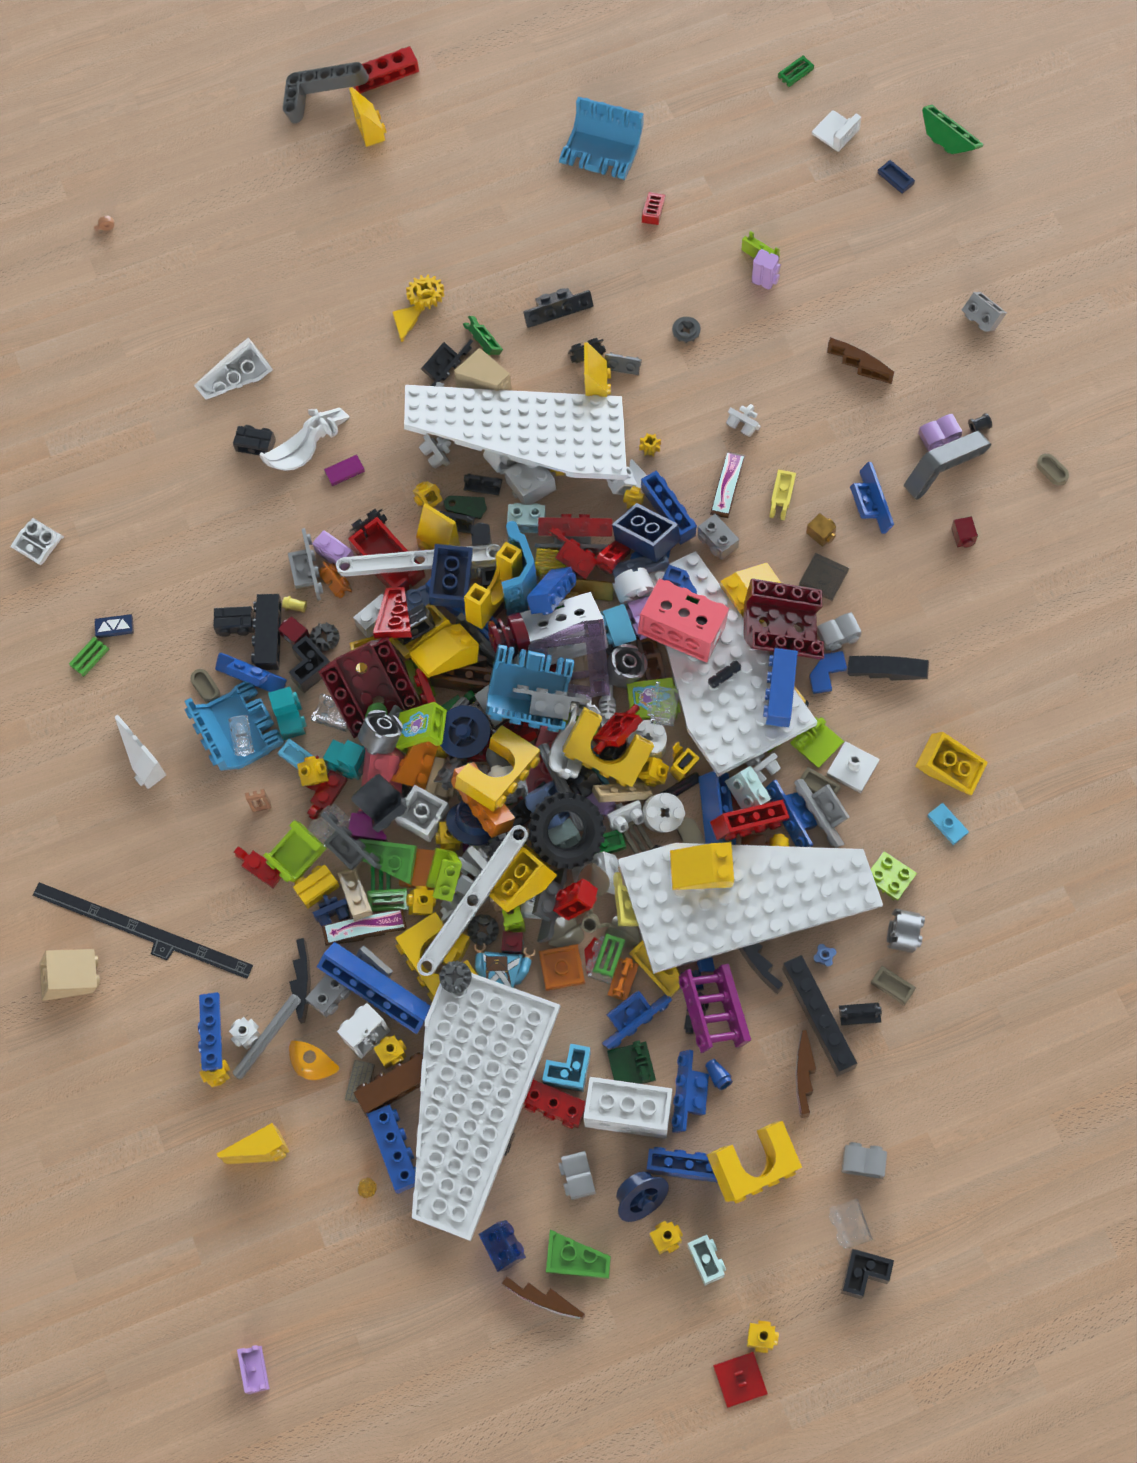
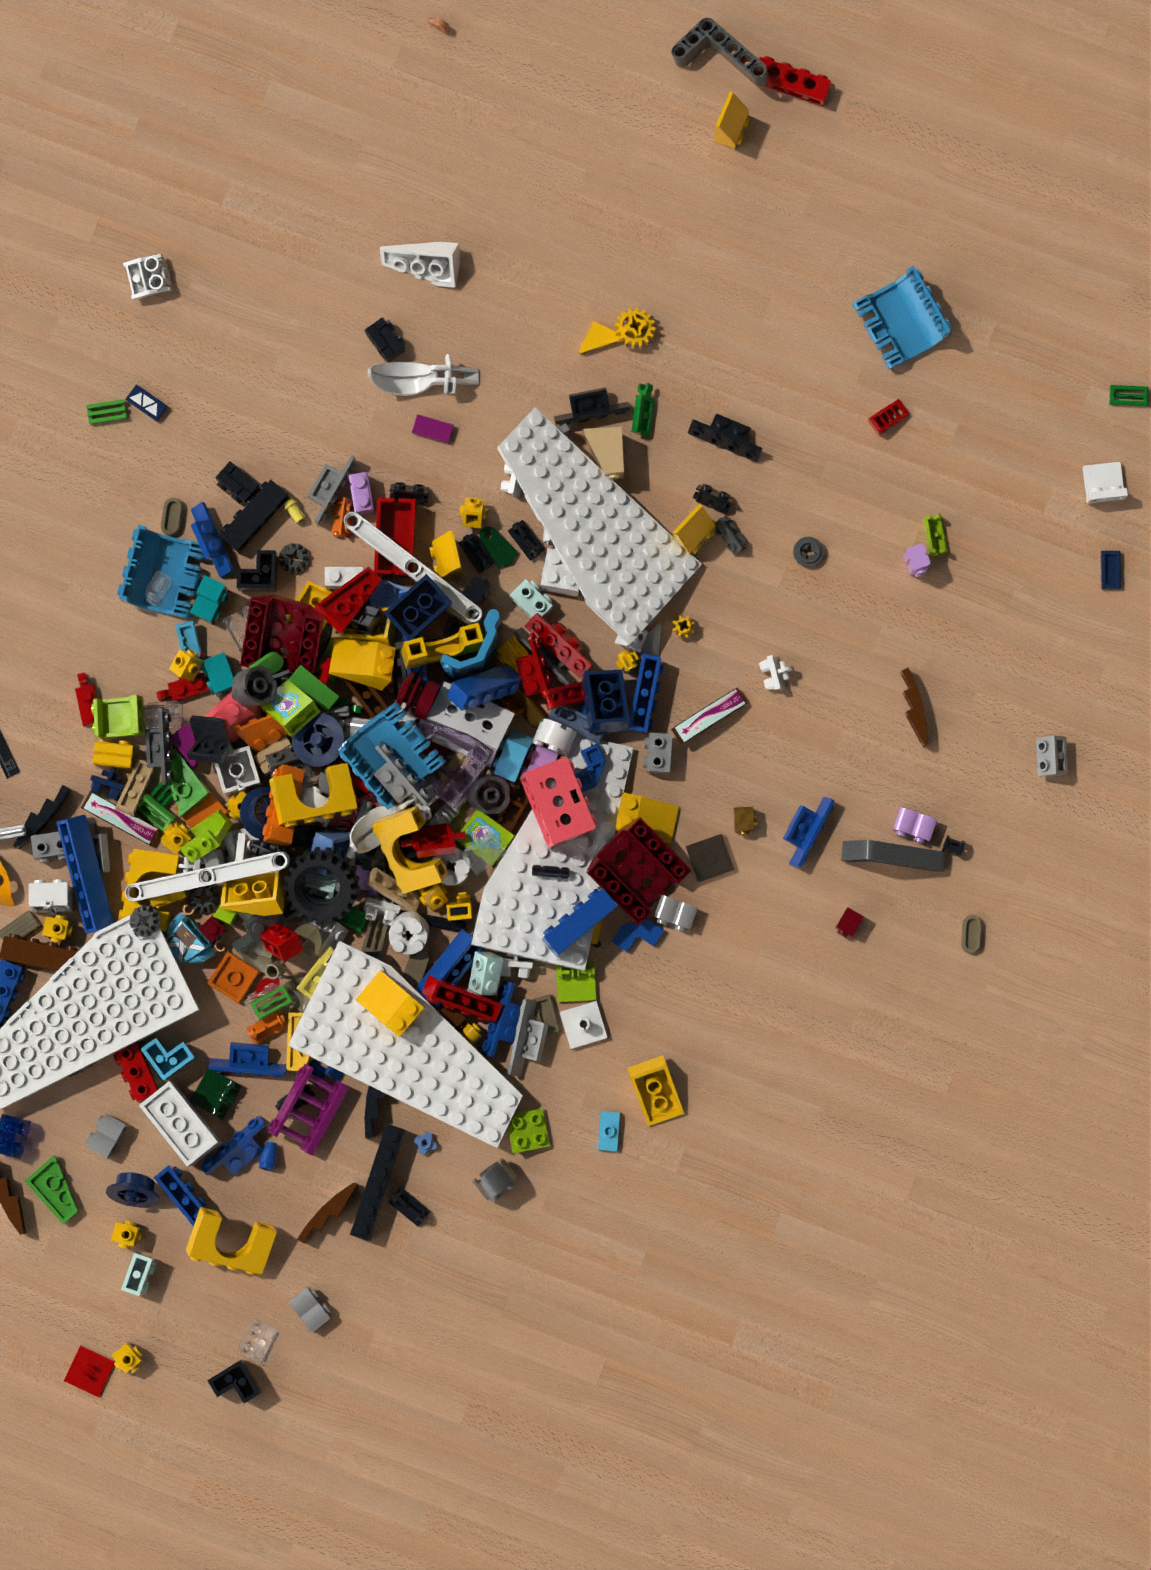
camera: 40 degrees right, 15 degrees up
(142, 761) = (73, 536): white wedge -> none
(257, 797) = (127, 651): nougat tile -> none
(293, 631) = (273, 534): dark red brick -> none
(414, 699) = (313, 688): none -> bright green sticker
(782, 492) = (745, 761): light yellow hinge -> none
(888, 667) = (683, 975): black slope -> none
(893, 985) = (452, 1208): dark tan tile -> none

